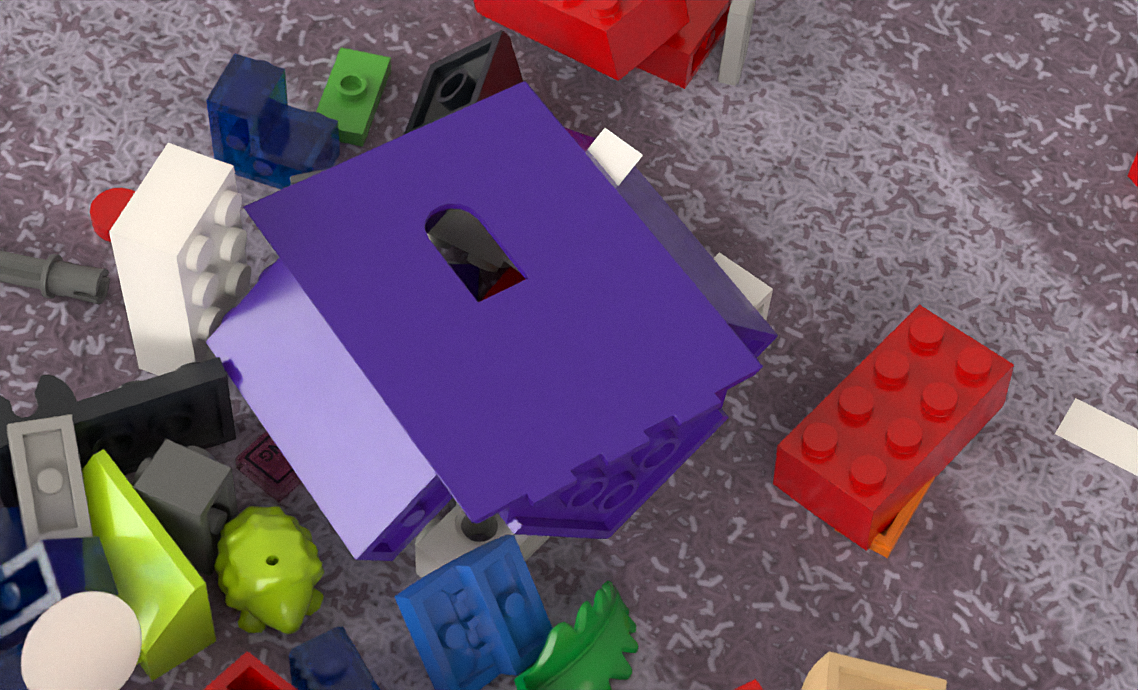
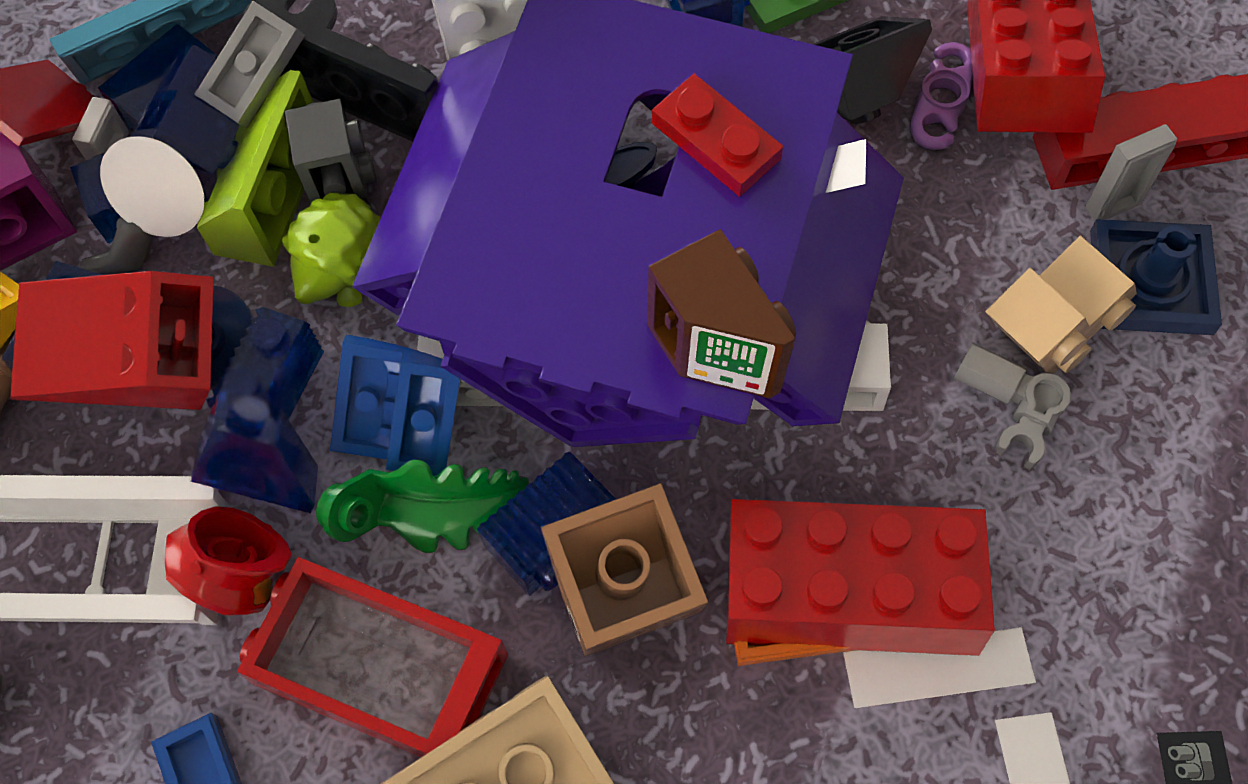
camera: 60 degrees right, 10 degrees up
(515, 204) = (717, 134): none -> red plate
(544, 65) = (931, 111): none -> medium lavender piece
(676, 591) = (515, 529): none -> clear blue brick
(699, 303) = (718, 318): none -> reddish brown slope
(773, 560) = (623, 569): none -> medium nougat slope
(808, 147) = (1064, 306): none -> tan brick
(816, 87) = (1170, 271): none -> dark blue plate
(848, 223) = (1038, 398): none -> light grey bar
(983, 458) = (904, 676): none -> white sticker

